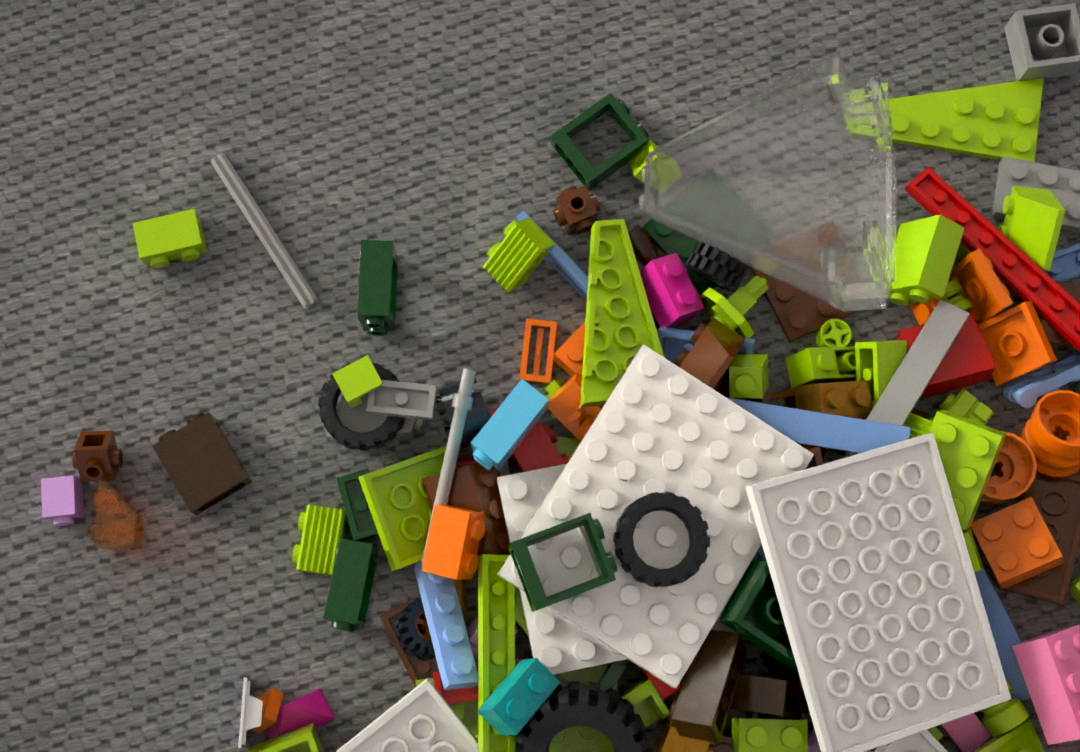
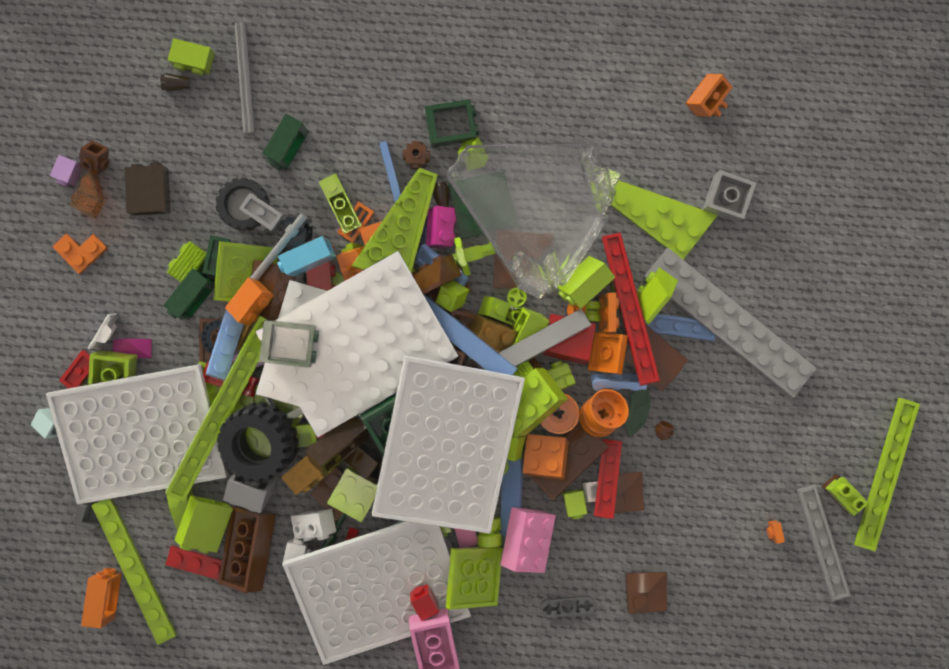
camera: 30 degrees right, 10 degrees up
(147, 619) = (80, 256): none -> orange plate
(161, 288) = (174, 82): none -> dark brown cone
(270, 708) = (117, 335): orange plate -> none
(357, 380) = (241, 189): lime panel -> none
(503, 333) = (340, 203): none -> lime slope
(518, 254) = (370, 164): lime brick -> none
(518, 696) = (238, 398): teal brick -> none
(697, 539) = (340, 379): black tyre -> none
(716, 266) = (469, 227): black tyre -> none

